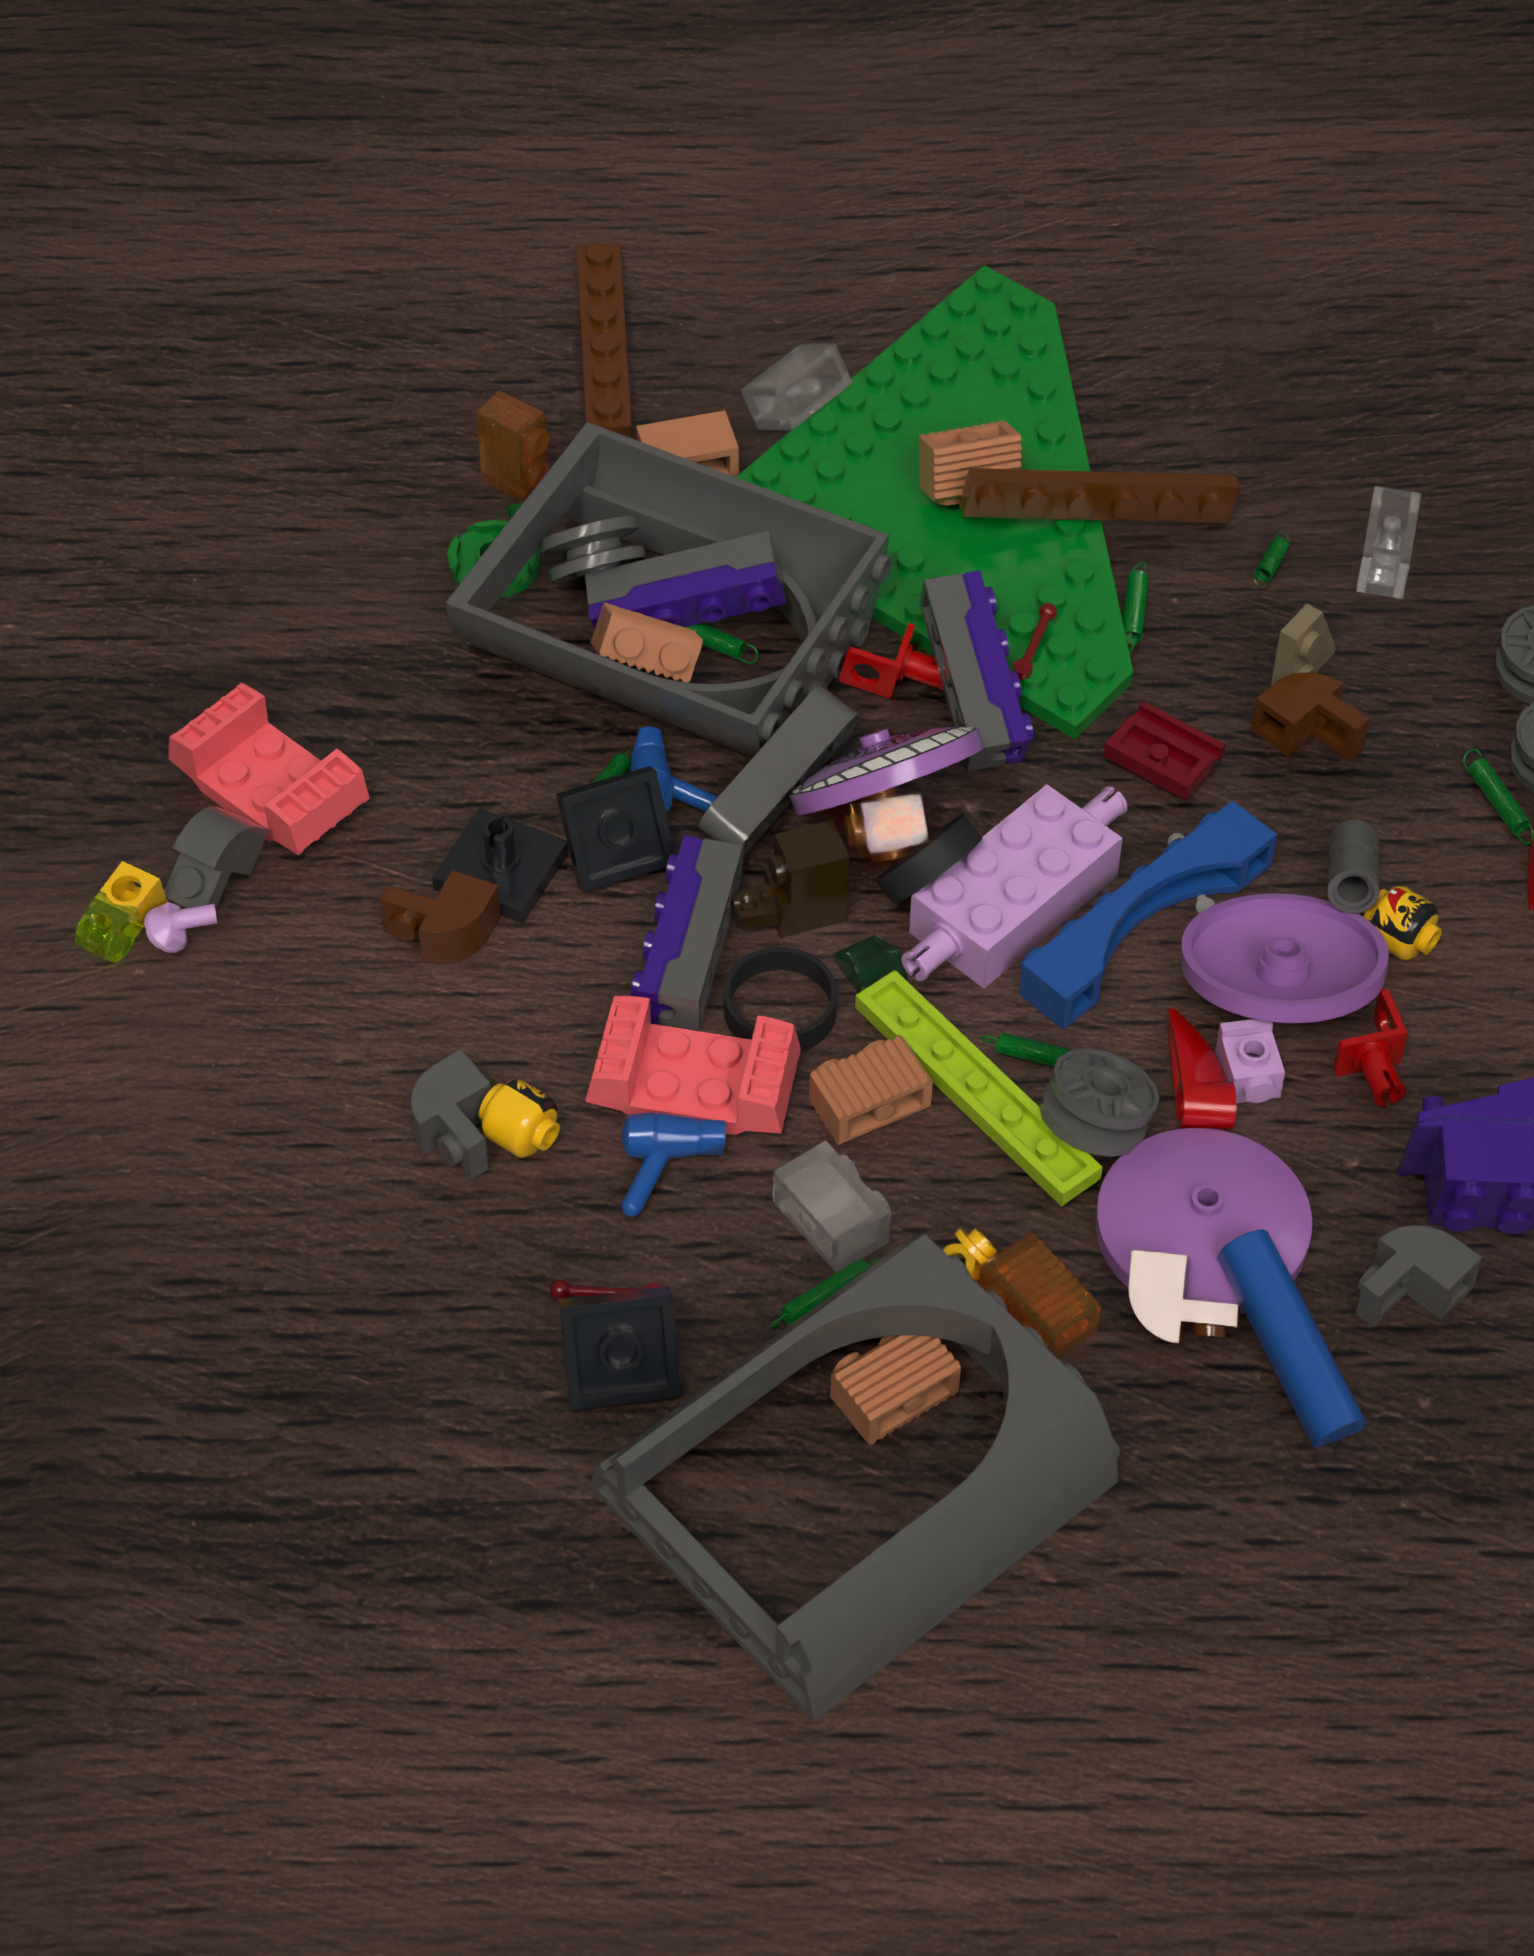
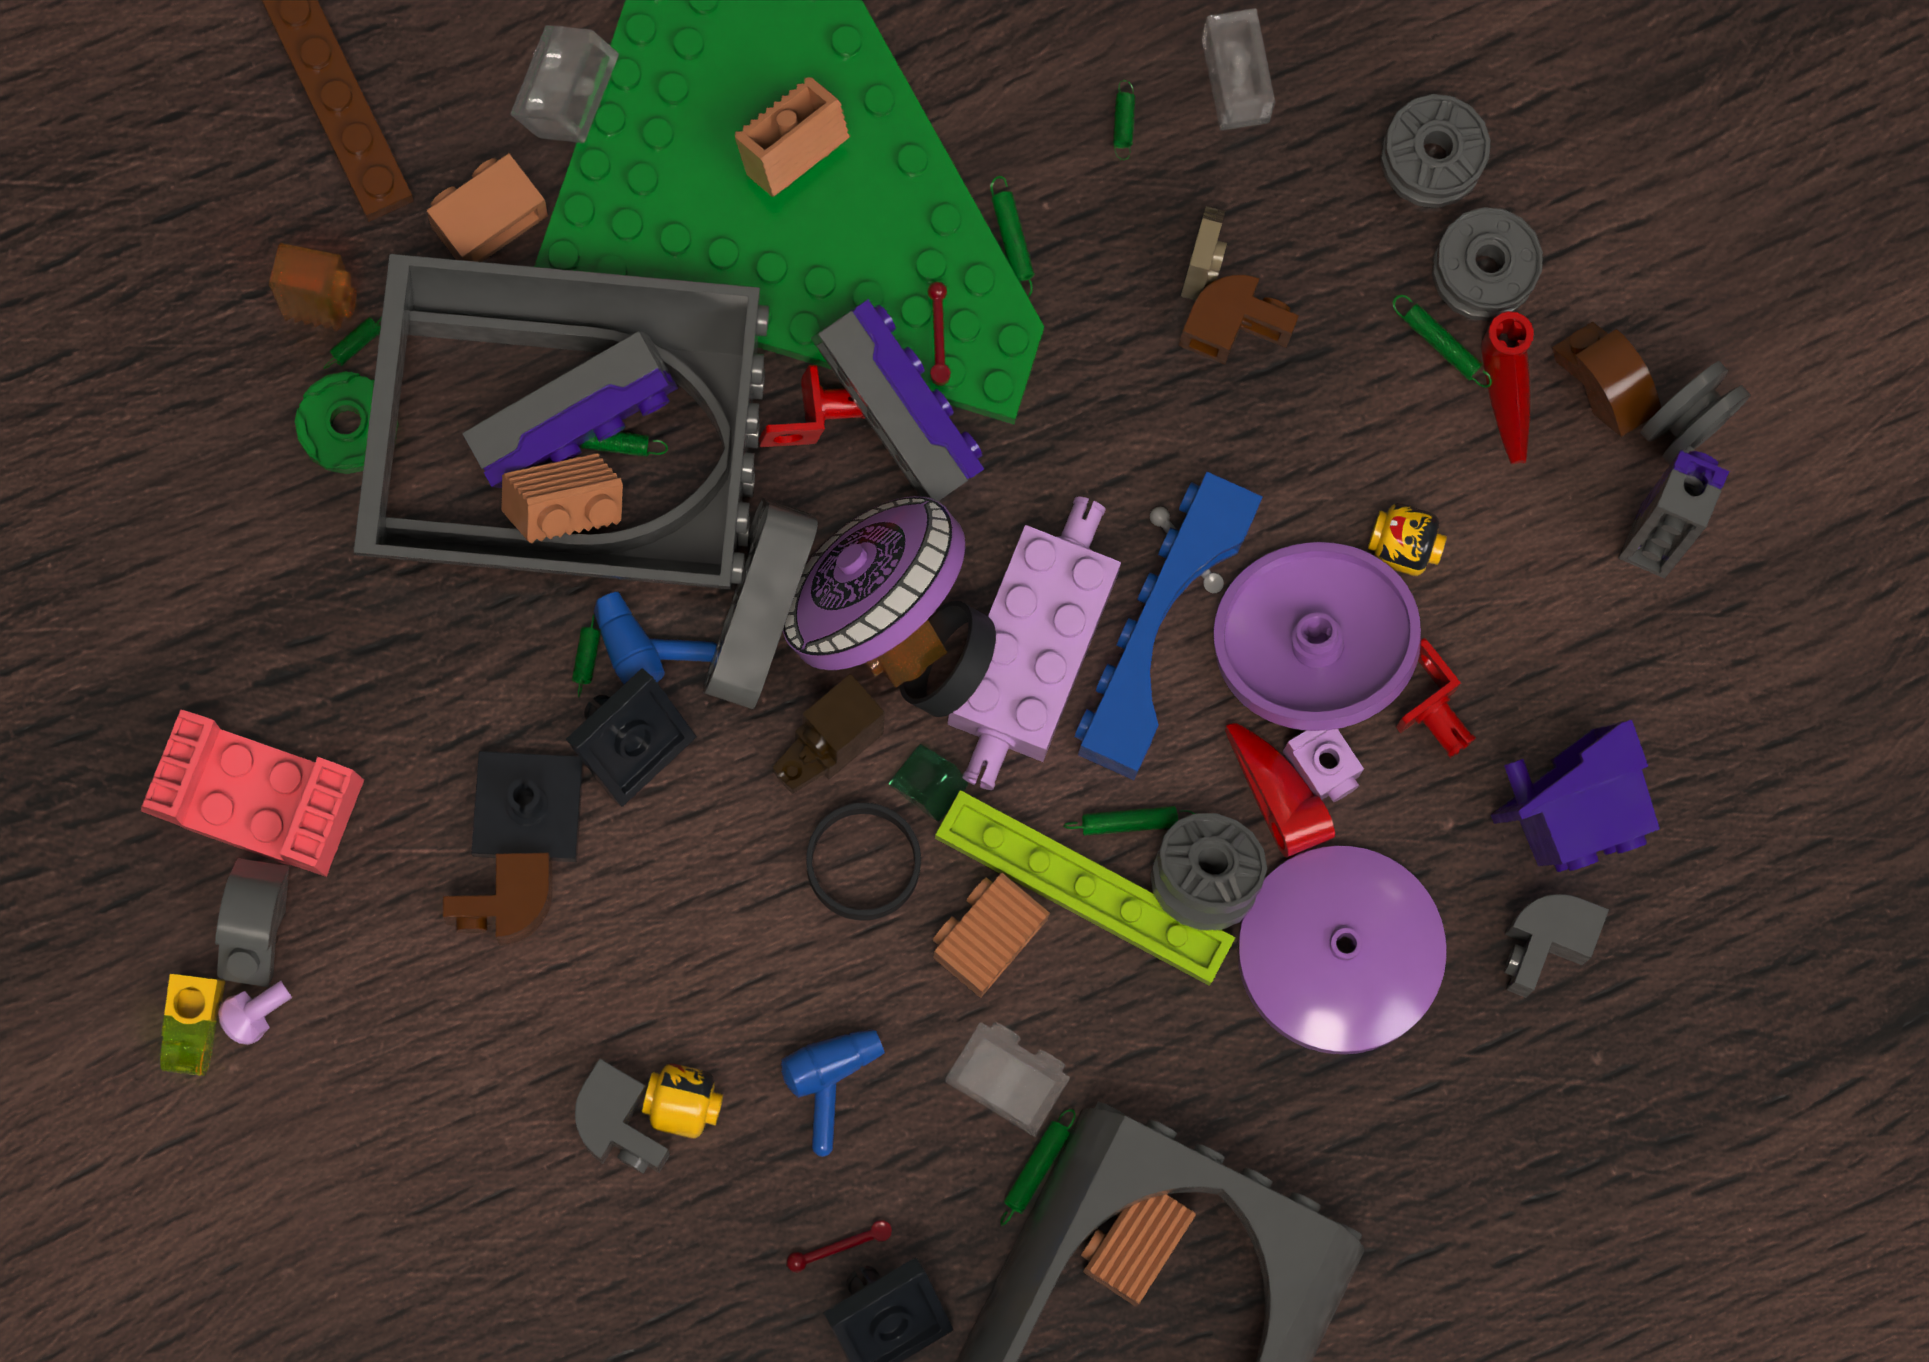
camera: 30 degrees left, 25 degrees up
(592, 548) = (457, 397): dark grey wheel -> none
(689, 931) = (748, 821): dark grey piece -> none
(695, 1072) = (818, 980): coral plate -> none
(974, 1248) = (1156, 1072): yellow plate -> none
(1042, 1294) = (1230, 1103): clear orange brick -> none
(1098, 495) = (923, 131): reddish brown plate -> none
(1161, 1304) = (1348, 1071): brick -> none
(1164, 750) = (1110, 415): dark red plate -> none
(1290, 1338) = (1468, 1056): blue brick -> none
(1353, 866) = (1343, 499): dark grey pin -> none

